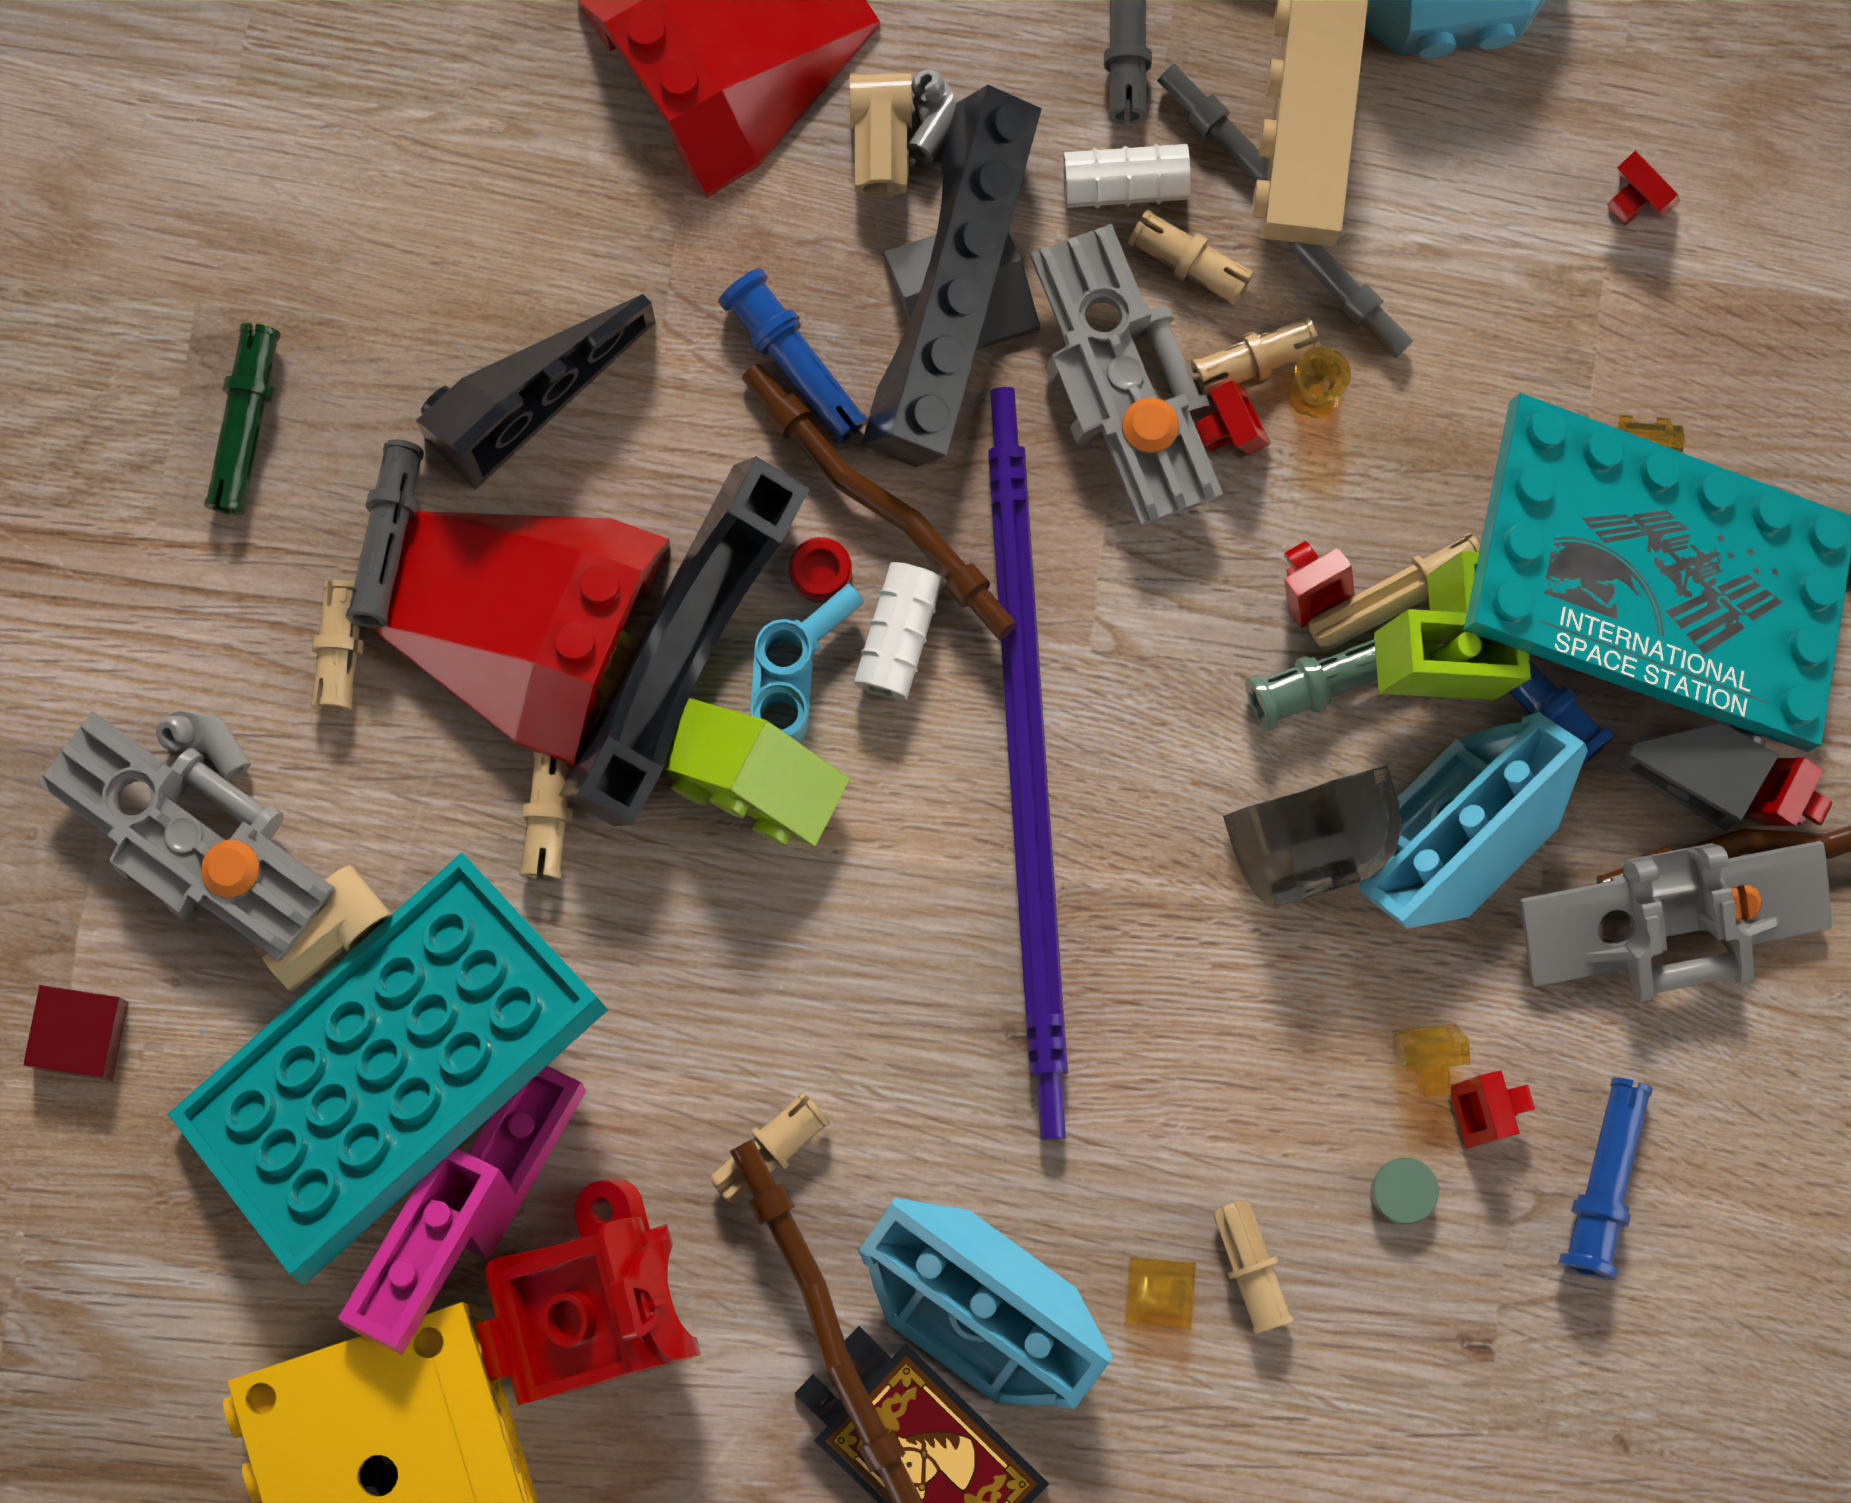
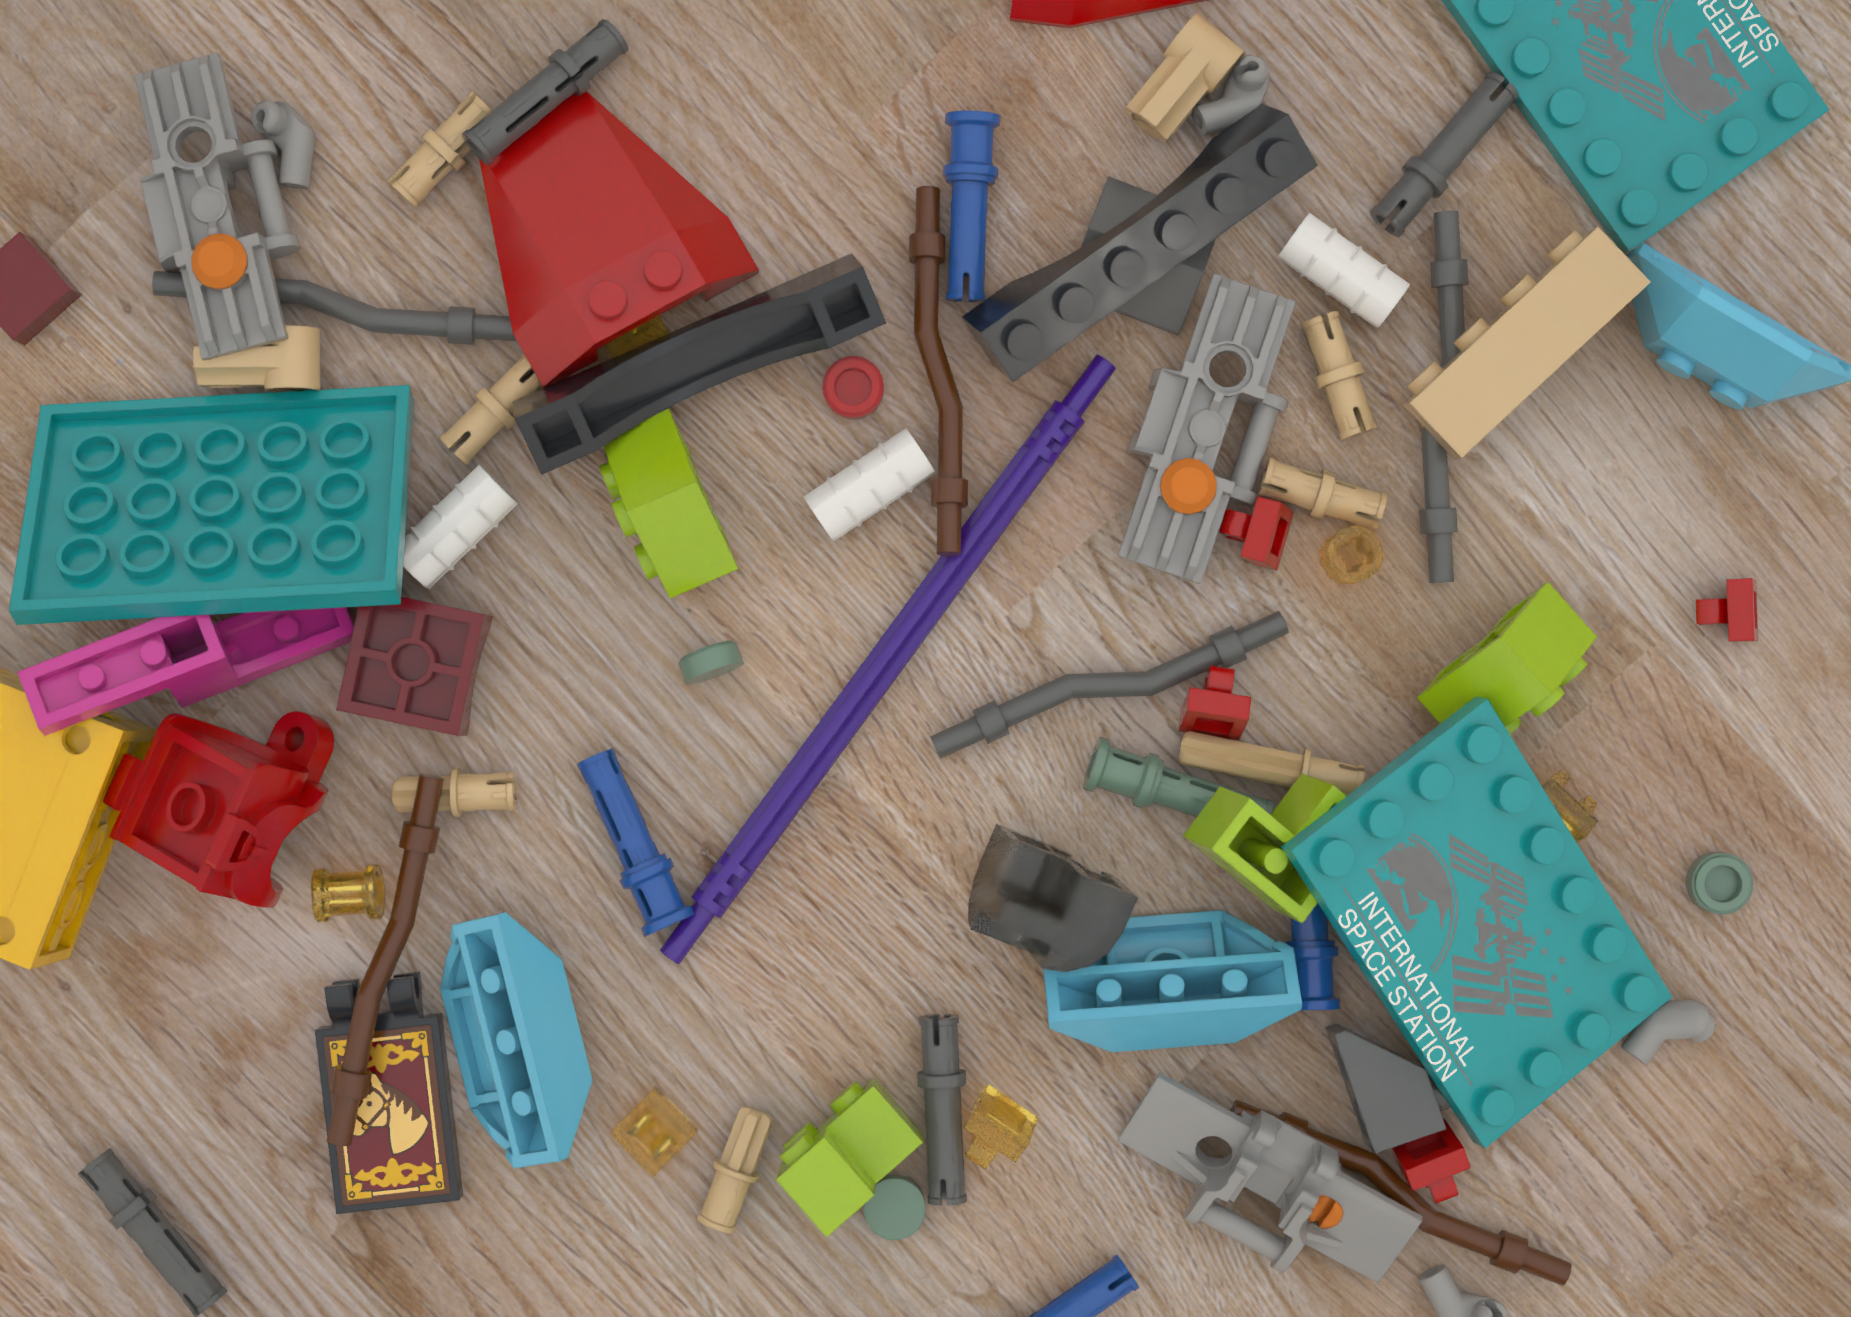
camera: 45 degrees right, 10 degrees up
(463, 773) = (459, 324): none -> dark grey bar
(508, 402) = (712, 63): black wedge -> none
(594, 926) = (455, 526): none -> white axle
(649, 1069) = (414, 665): none -> dark red piece
(748, 1304) = (348, 893): none -> clear yellow bush
(793, 683) = (759, 461): medium azure beam -> none
(889, 873) = (710, 662): none -> sand green tile
(975, 1083) = (644, 868): none -> blue pin
(1152, 735) = (1224, 649): none -> dark grey bar
(1332, 1171) = (841, 1161): none -> lime brick
(1375, 1077) = (943, 1113): none -> dark grey pin
(1488, 1108) = (1004, 1202): red tile -> none
(1516, 349) = (1517, 663): none -> lime brick
(1813, 404) = (1719, 883): none -> sand green tile

